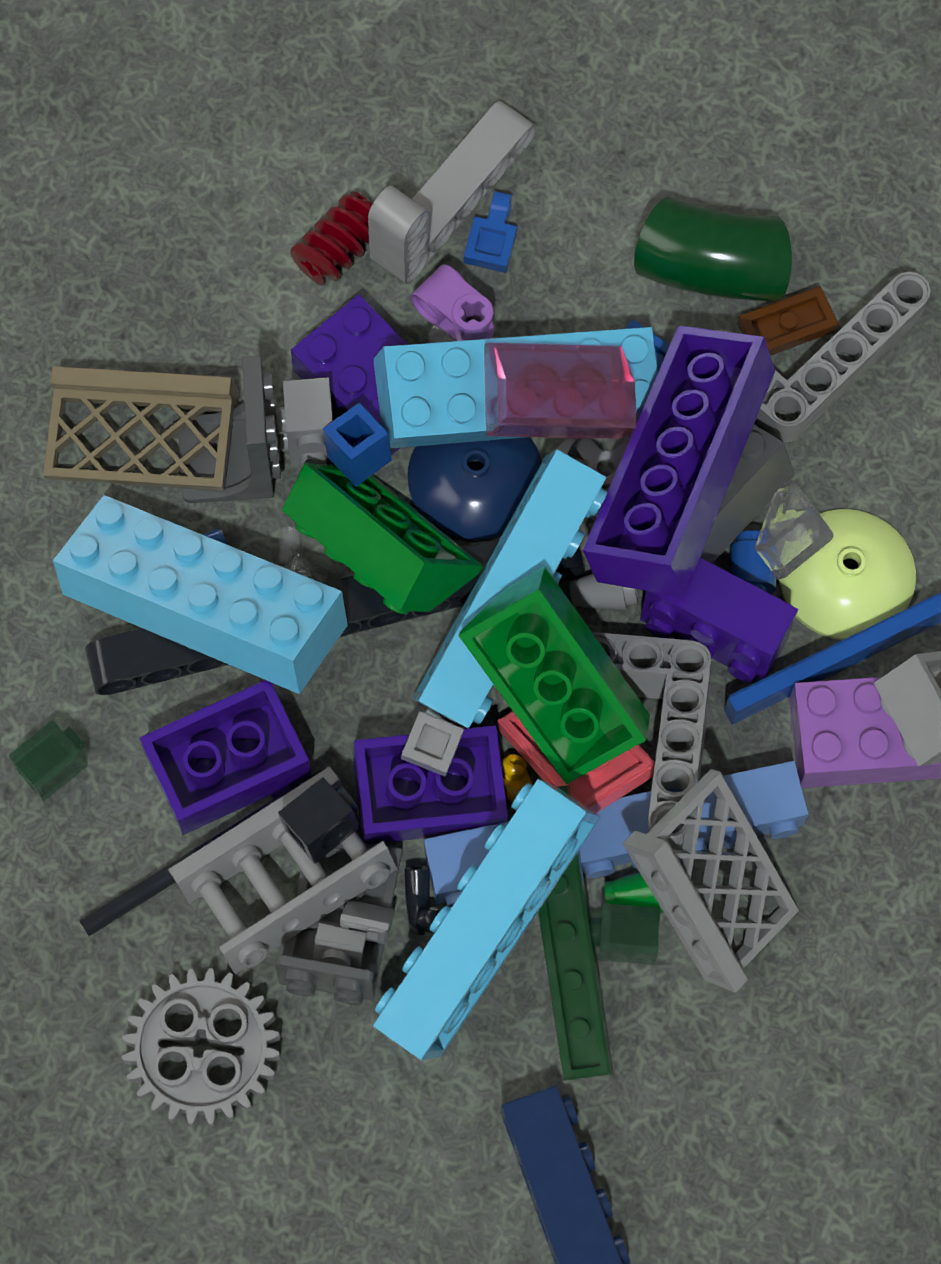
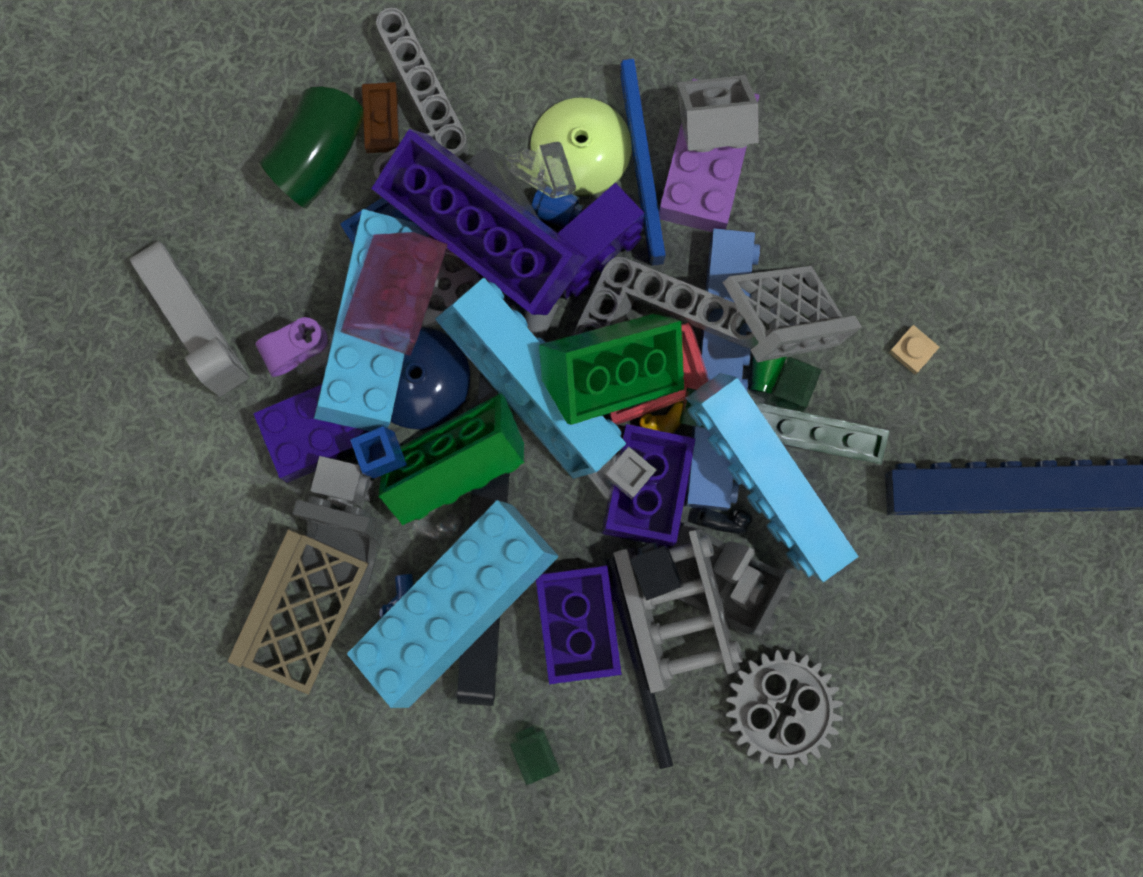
camera: 70 degrees left, 10 degrees up
(334, 239) = (196, 415): dark red piece -> none
(492, 239) = (238, 303): blue plate -> none
(734, 1078) = (914, 349): none -> tan plate

